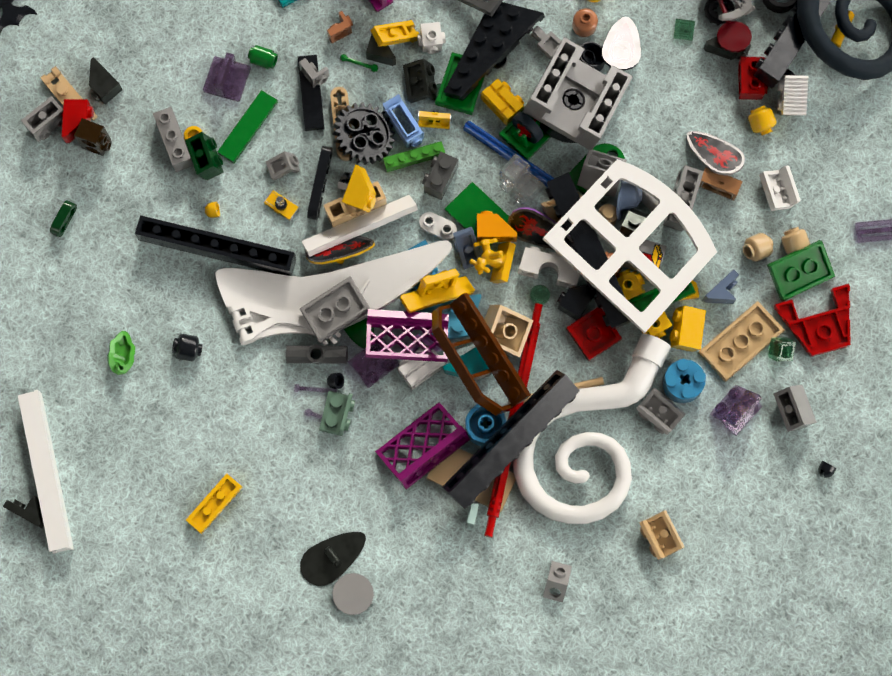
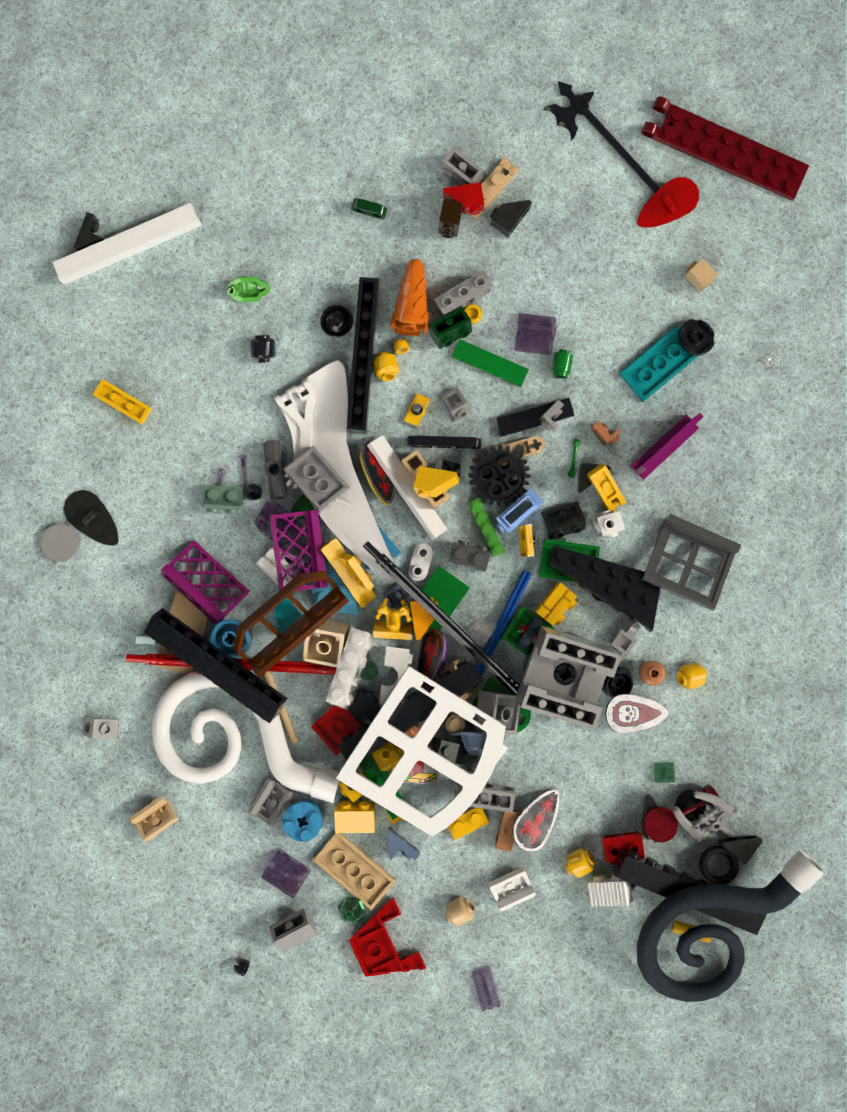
camera: 85 degrees right, 10 degrees up
(171, 189) = (411, 304): none -> orange cone
(173, 269) = (336, 321): none -> black hat
(231, 225) = (385, 366): none -> yellow head
(501, 203) = (439, 615): none -> black axle
(536, 309) = (349, 668): none -> white brick
(706, 214) = (468, 822): none -> yellow plate
(758, 247) = (448, 875): tan head -> none
(801, 270) = (431, 920): green tile -> none

